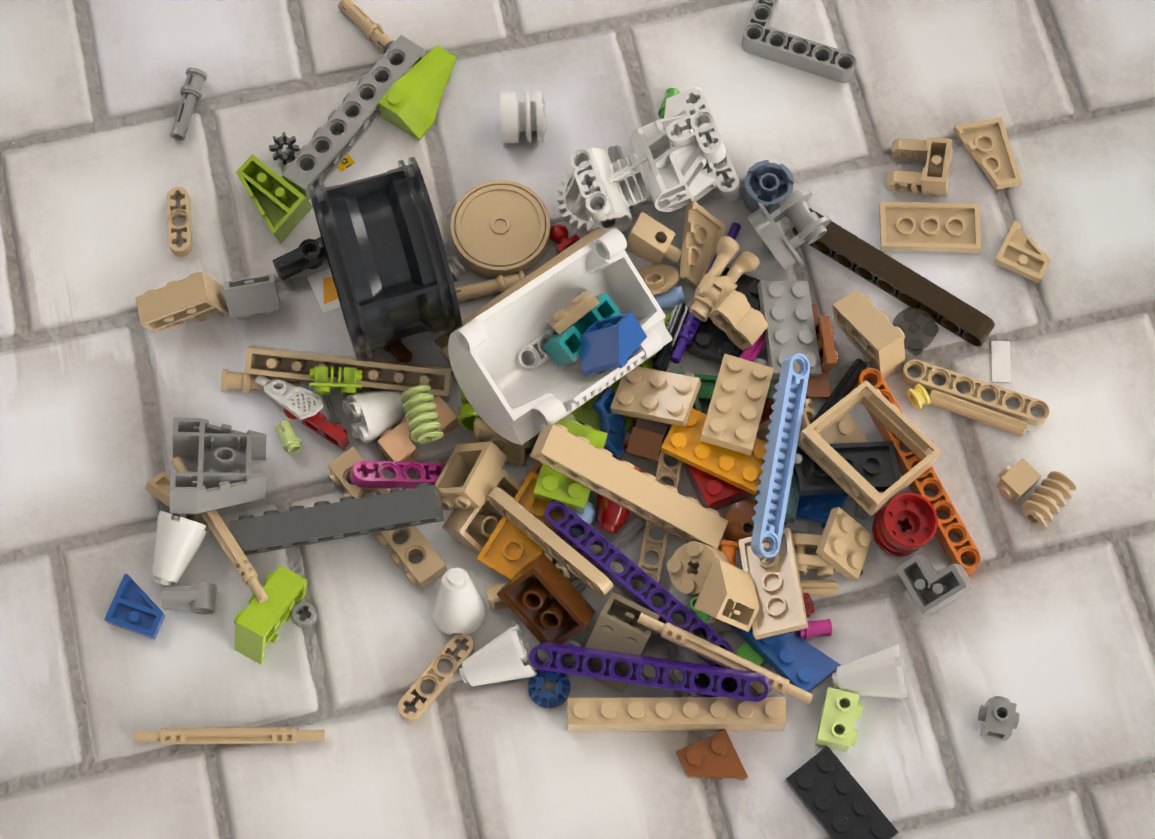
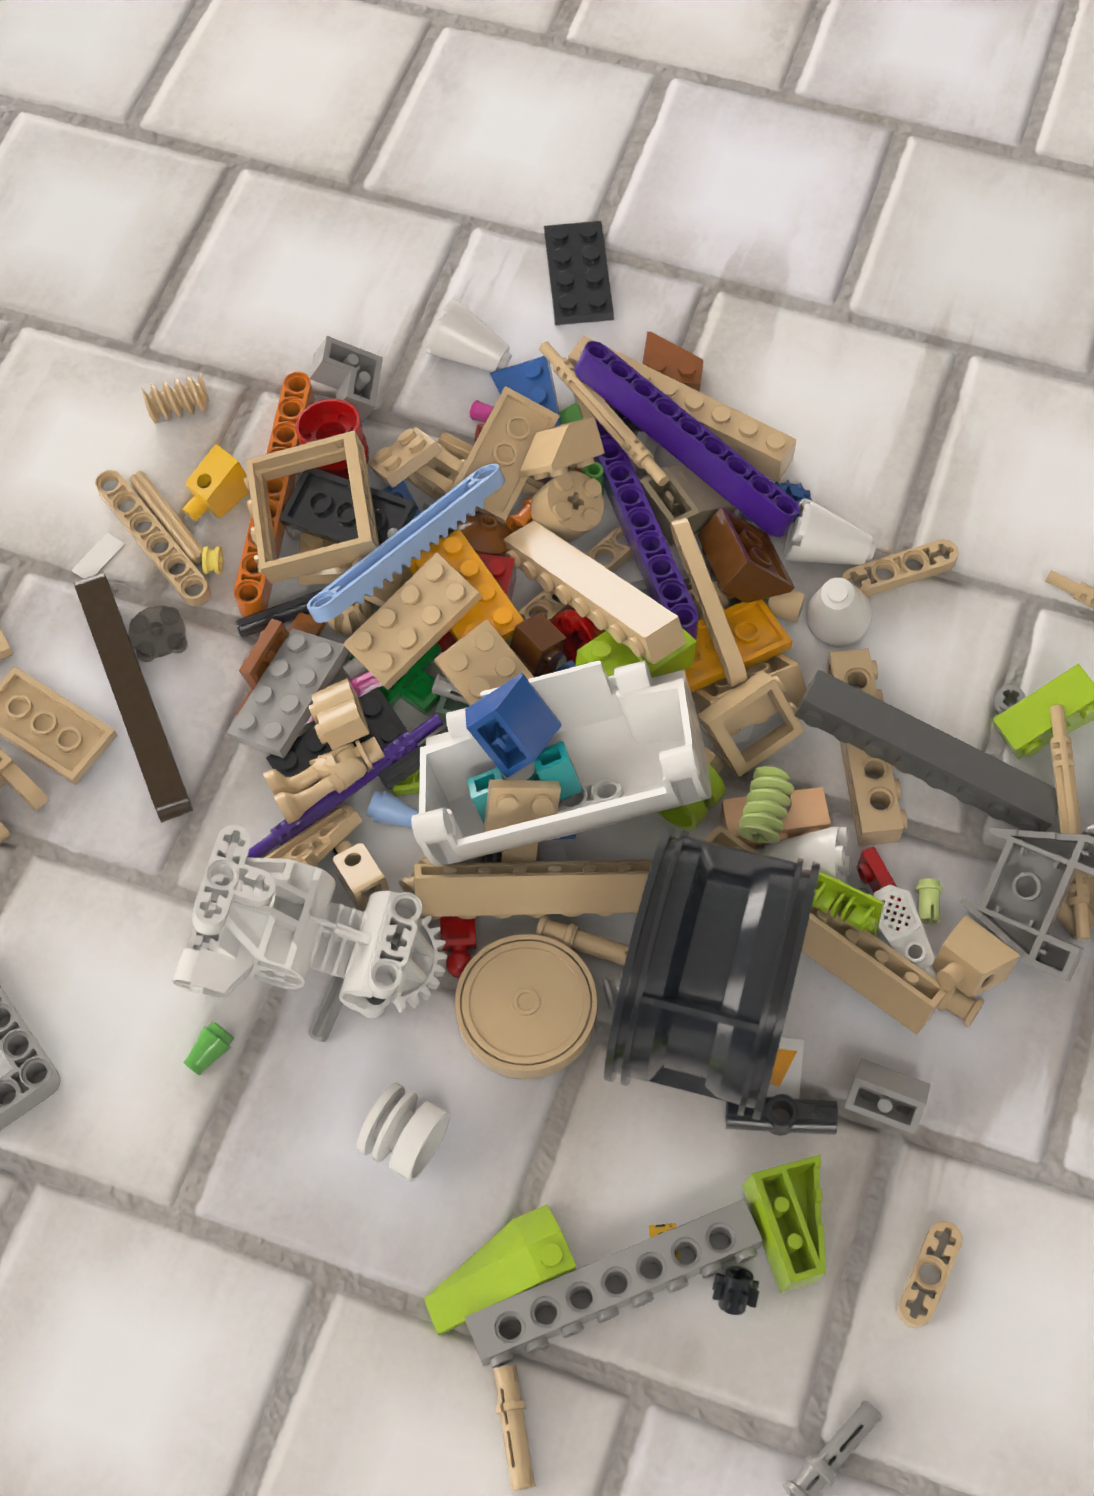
camera: 145 degrees left, 5 degrees down
(181, 301) = (983, 1139): tan wedge -> none
(241, 403) = (973, 959): none -> tan torso
(399, 469) = (826, 768): dark pink beam -> none
(659, 277) = (374, 831): tan dish -> none
(767, 184) = (166, 857): sand blue brick -> none
(798, 212) = (181, 799): light grey piece -> none
(838, 720) = (530, 327): yellowish green brick -> none
(872, 331) = (204, 643): tan wedge -> none
(958, 447) = (215, 485): none -> yellow torso
(998, 718) = (384, 254): light grey brick -> none
(1017, 480) = (188, 431): tan brick -> none

